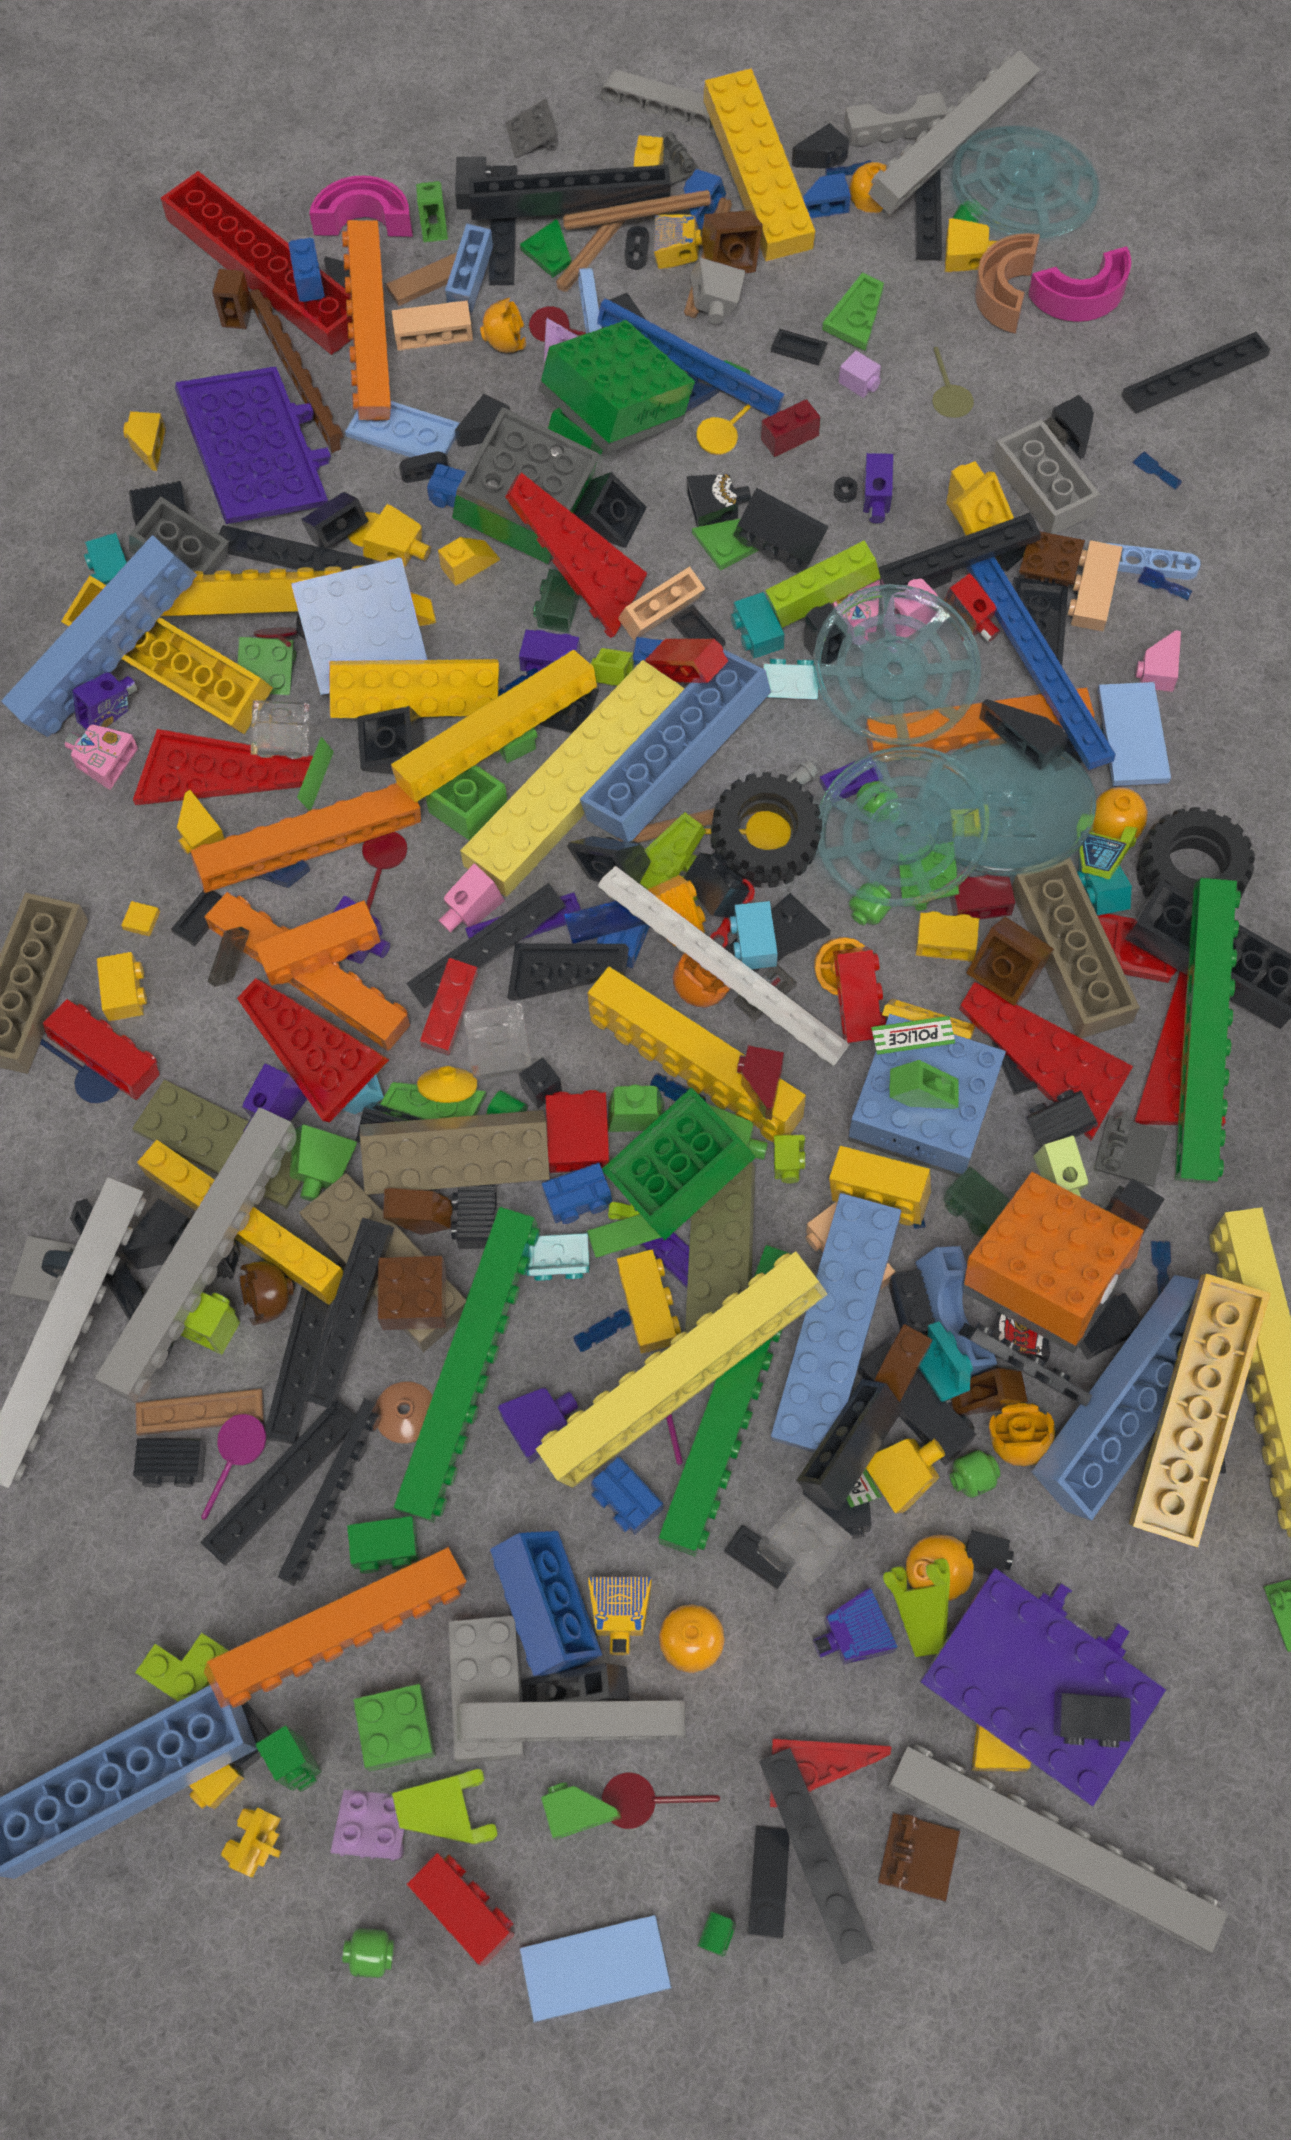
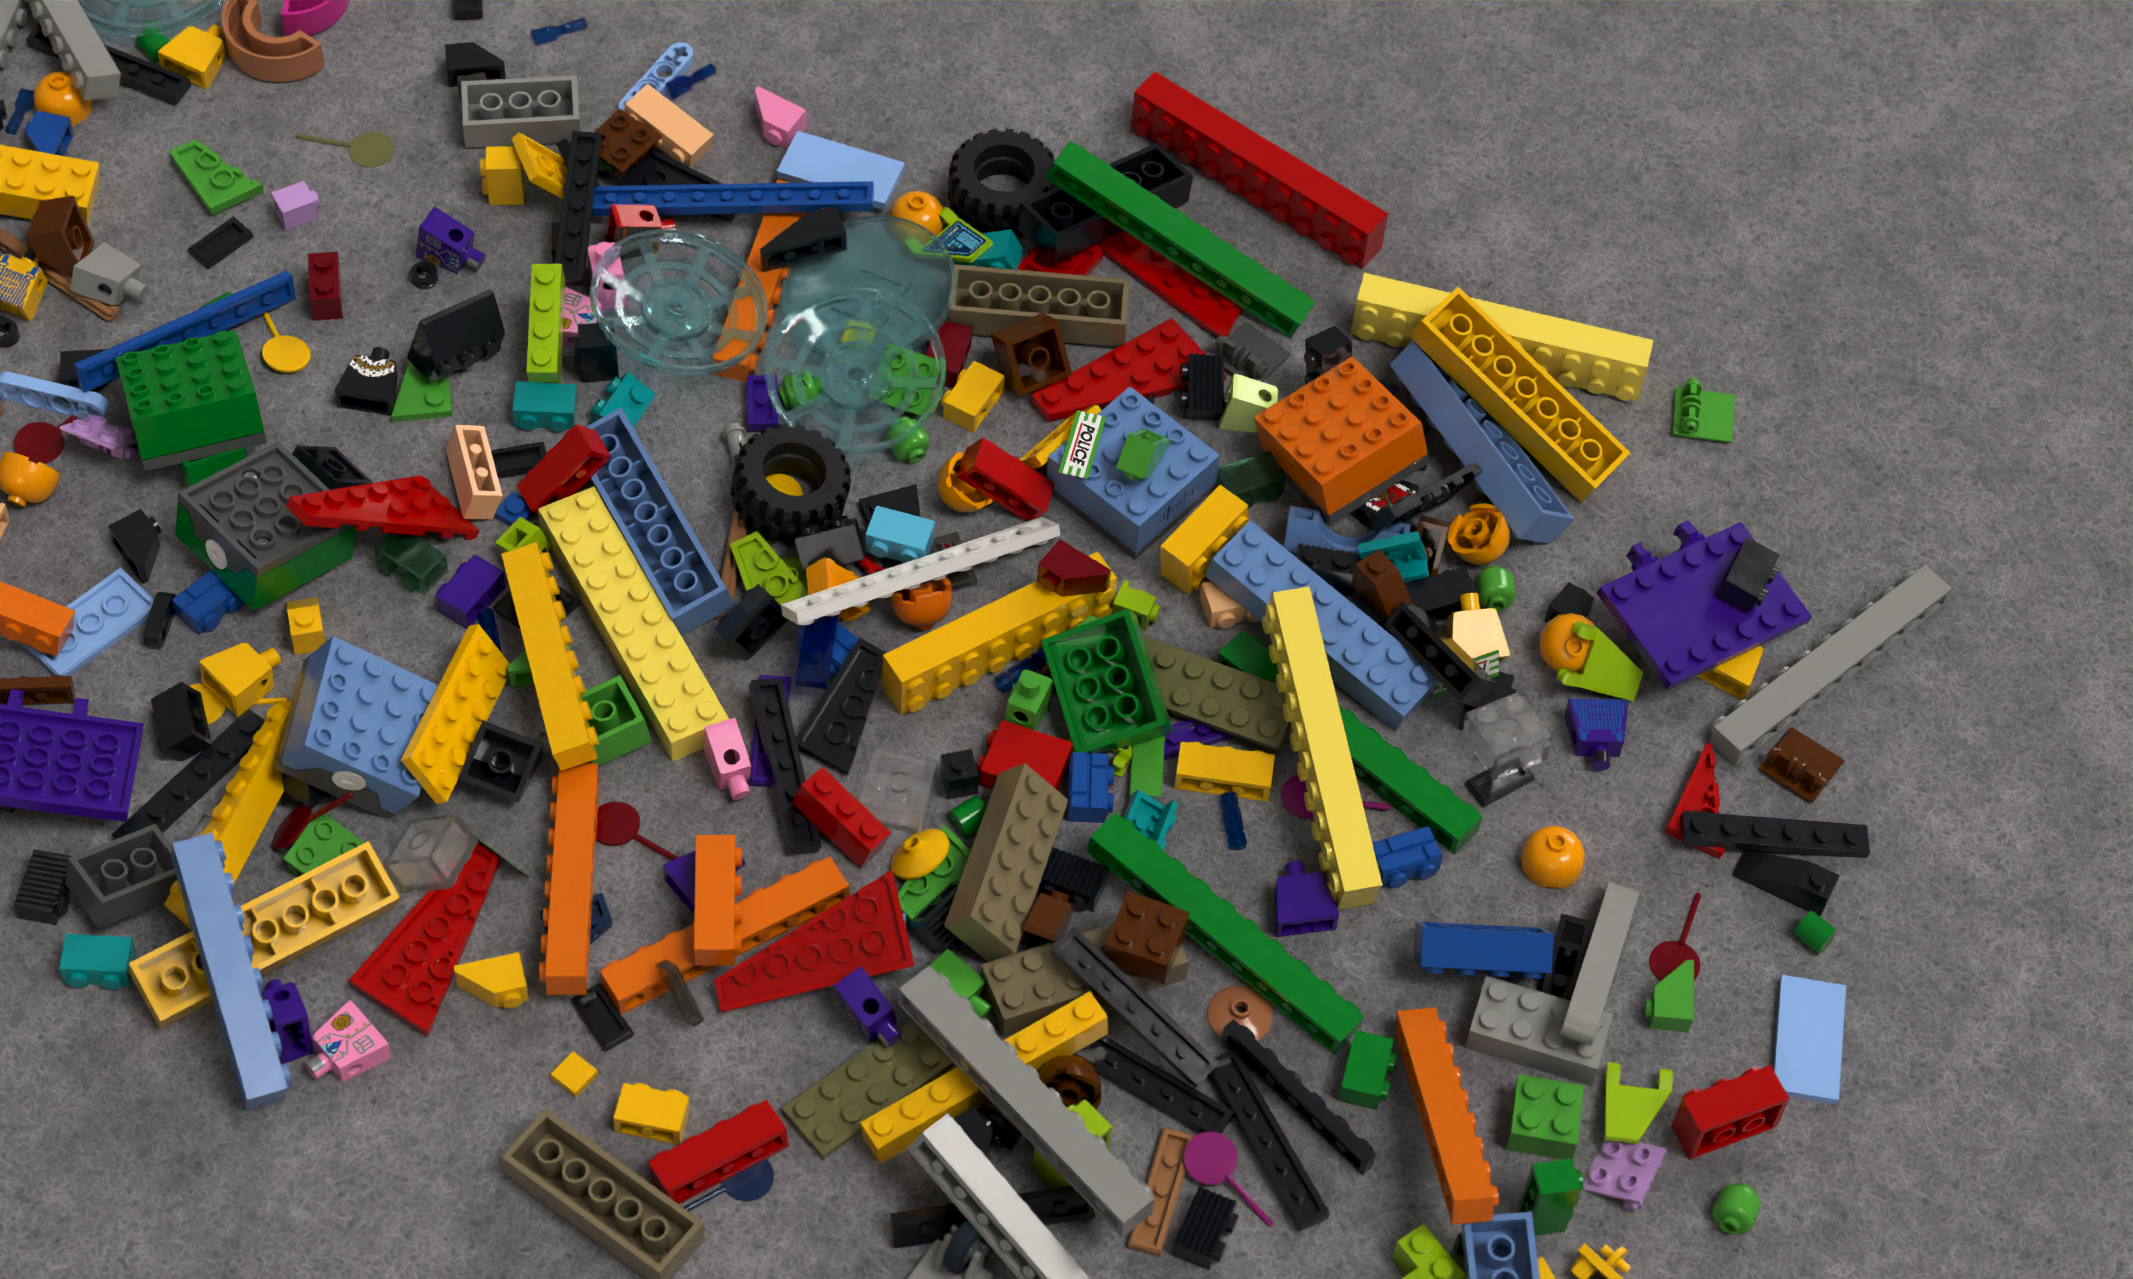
camera: 75 degrees left, 10 degrees down
(620, 1609) = (1506, 899): torso -> none

